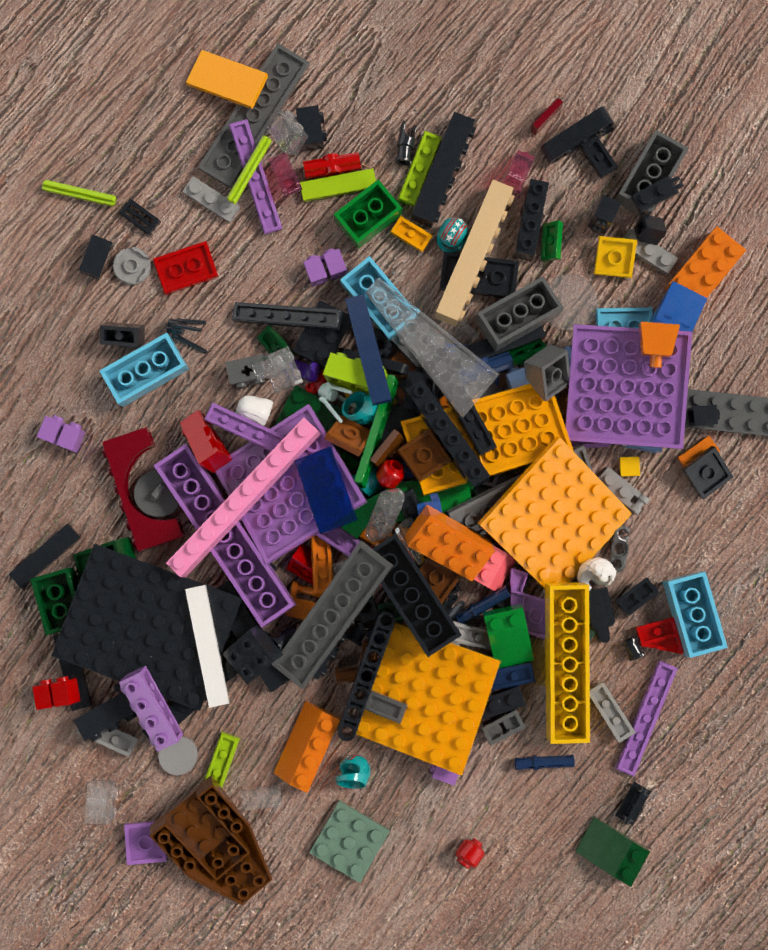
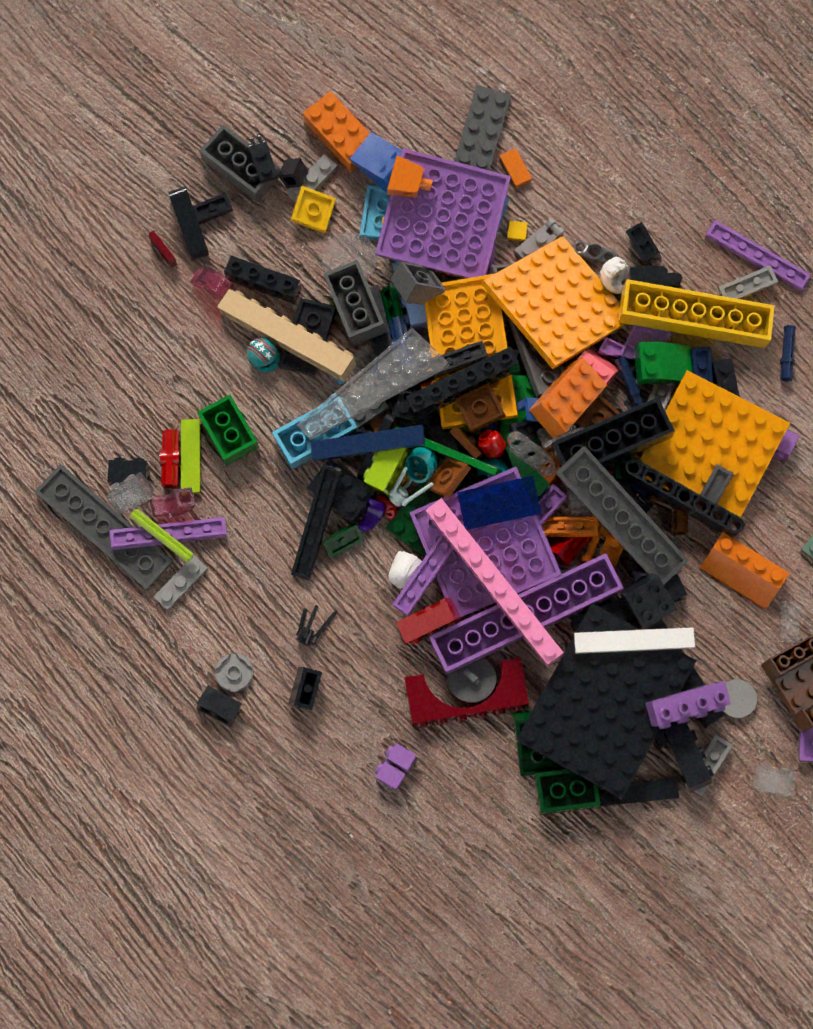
camera: 75 degrees left, 10 degrees down
(45, 555) = (517, 803): black tile -> none
(56, 693) = (659, 804): red piece -> none
(79, 193) = (148, 714): lime axle -> none
(144, 370) = (345, 671): medium azure brick -> none
(152, 226) = (197, 646): black tile -> none
(185, 268) = (246, 619): red tile -> none
(222, 757) = (744, 656): lime tile -> none
(227, 79) = (61, 546): light orange tile -> none
(238, 367) = (360, 582): dark grey brick -> none
(280, 369) = (368, 537): clear brick -> none
(334, 263) = (272, 480): medium lavender piece -> none
(354, 772) = (775, 528): teal helmet -> none
(405, 145) = (162, 385): black piece -> none
(411, 234) = (254, 393): light orange plate -> none
(419, 168) = (189, 376): lime tile -> none
(443, 169) = (196, 353): black brick -> none
(502, 726) = (749, 383): dark grey brick -> none
(551, 241) = (287, 264): green plate -> none
(604, 215) = (272, 211): black brick -> none
(632, 648) = (691, 256): black bush -> none
(660, 635) = (682, 229): red wing -> none
(695, 614) = (666, 195): medium azure brick -> none
(703, 415) = (481, 154): black brick -> none
(707, 472) = (534, 162): black plate -> none

